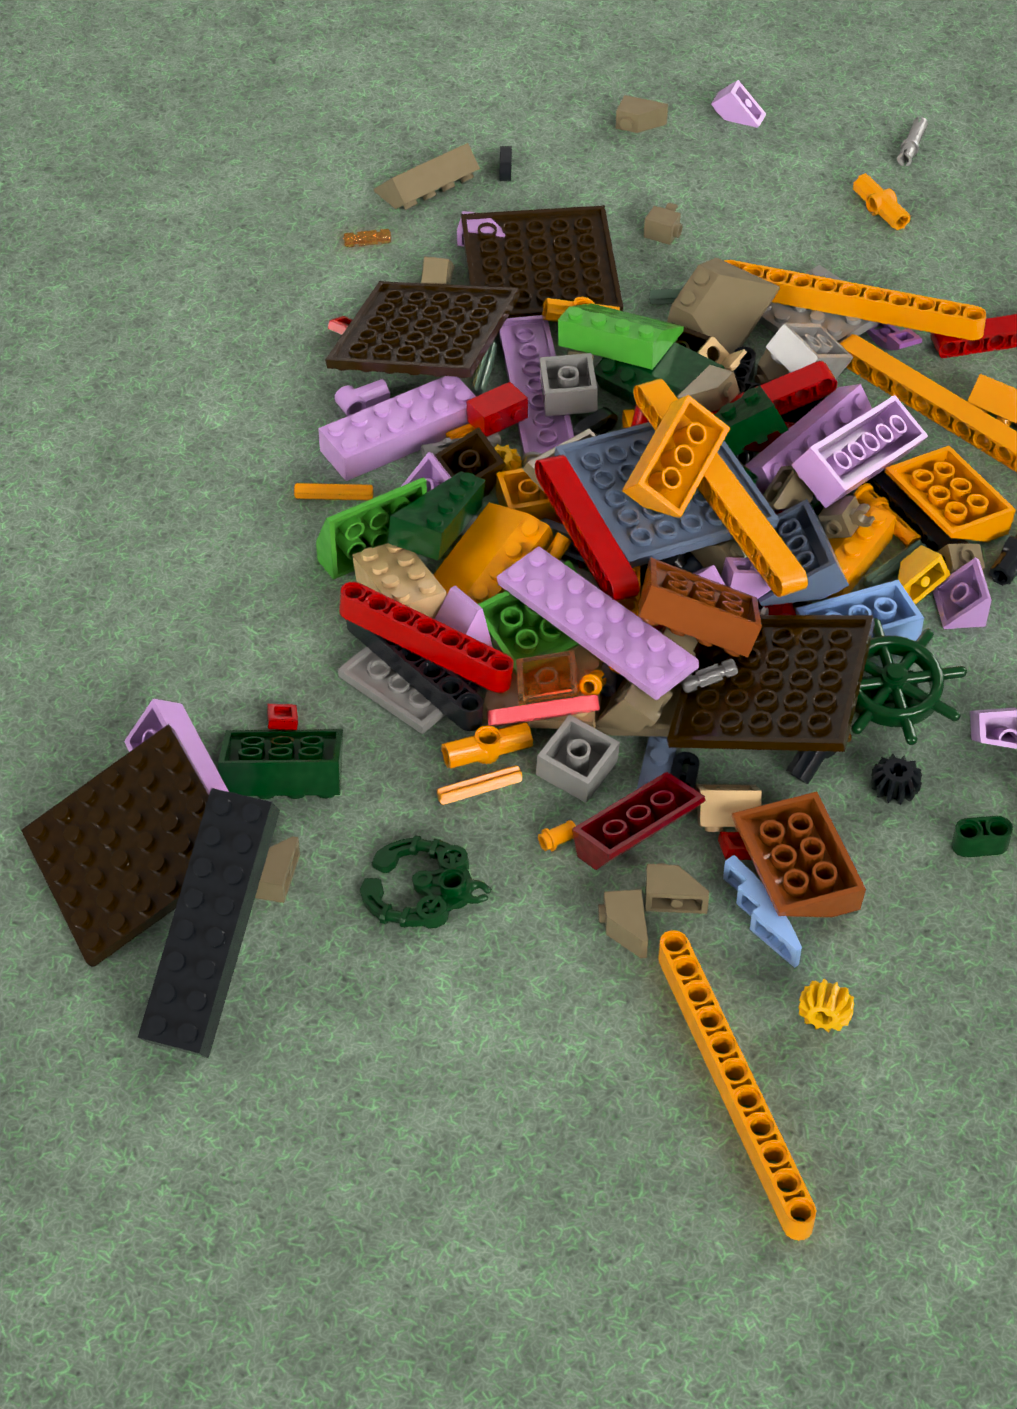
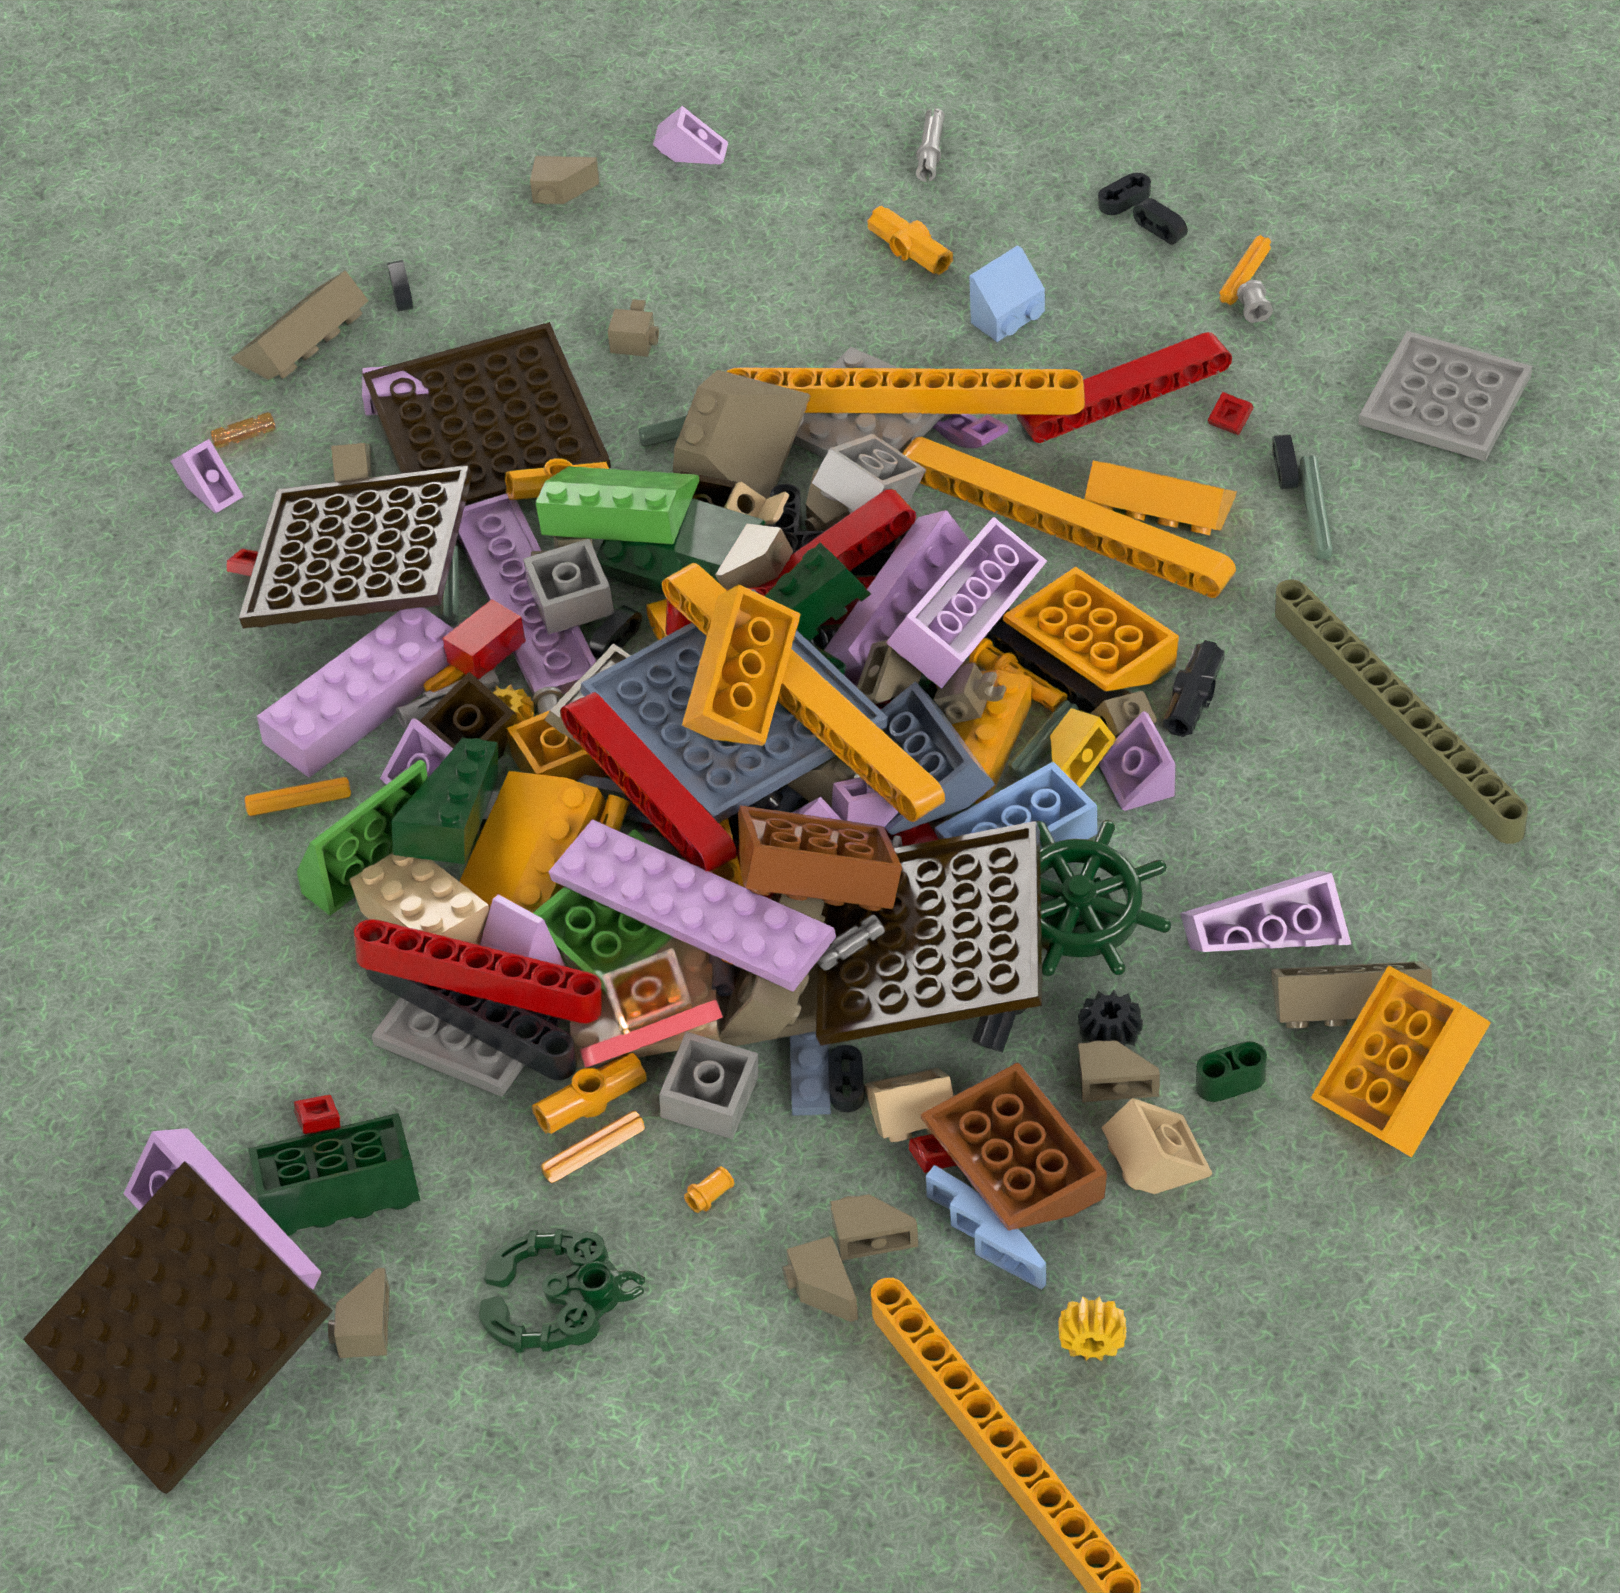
camera: 10 degrees left, 0 degrees up
(209, 923) = (310, 1404): black brick -> none
(332, 262) = (207, 476): none -> lavender slope
(358, 399) = (293, 664): lavender piece -> none
(597, 683) = (705, 985): light orange pin -> none
(634, 819) = (800, 1148): dark red slope -> none
(891, 817) = (1115, 1072): none -> dark tan slope
(908, 880) = (1154, 1148): none -> tan slope
(942, 249) = (1005, 295): none -> light blue slope

